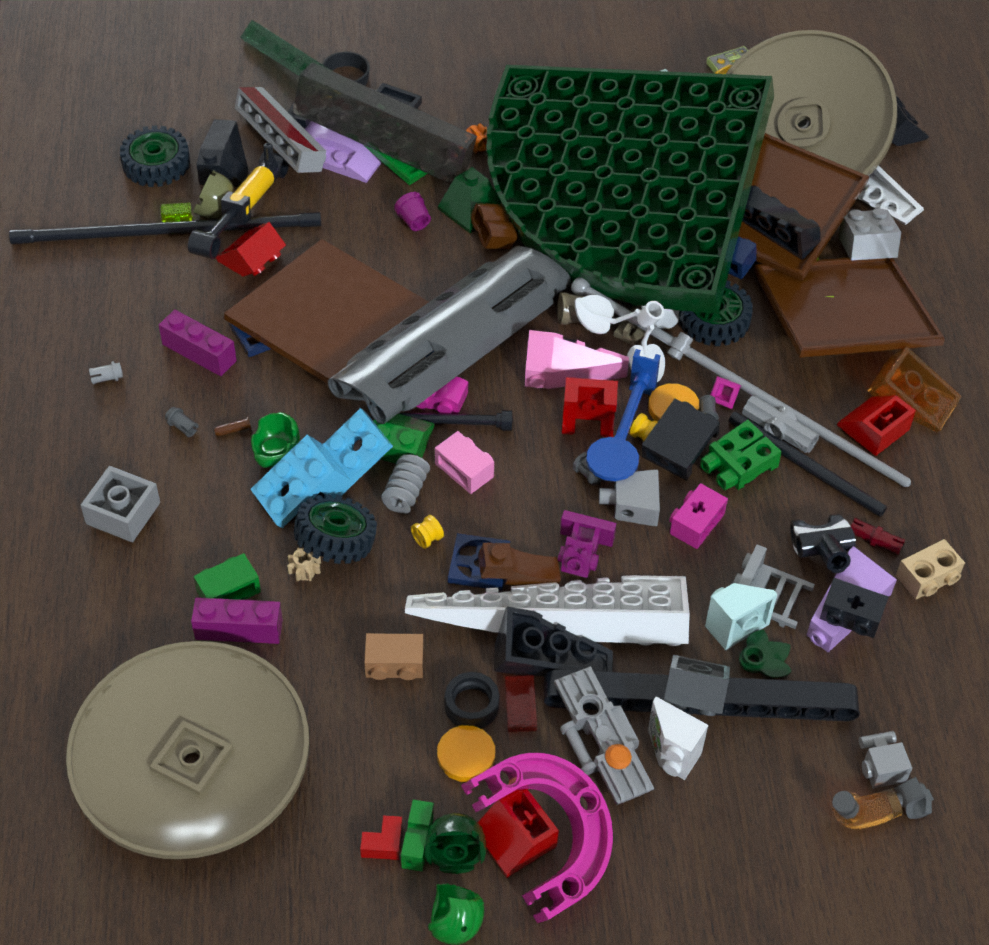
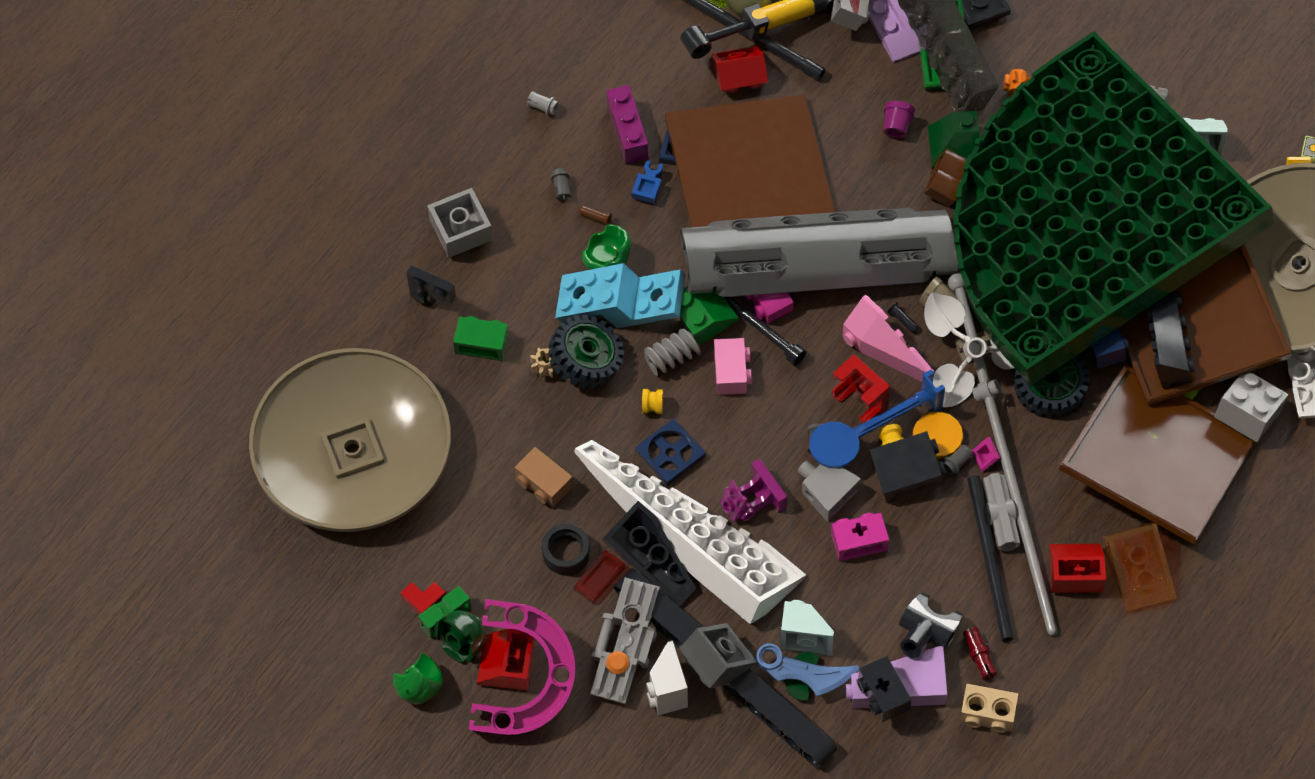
camera: 45 degrees right, 10 degrees up
(137, 567) = (428, 287): none -> black plate
(237, 620) = (463, 371): magenta brick -> none
(256, 376) = (648, 185): none -> blue plate
(465, 752) = (529, 582): light orange tile -> none
(515, 566) = (687, 476): reddish brown slope -> none
(740, 456) = (942, 514): green hips -> none
(758, 575) = (849, 615): light grey plate -> none
(786, 643) = (818, 678): none -> medium blue piece

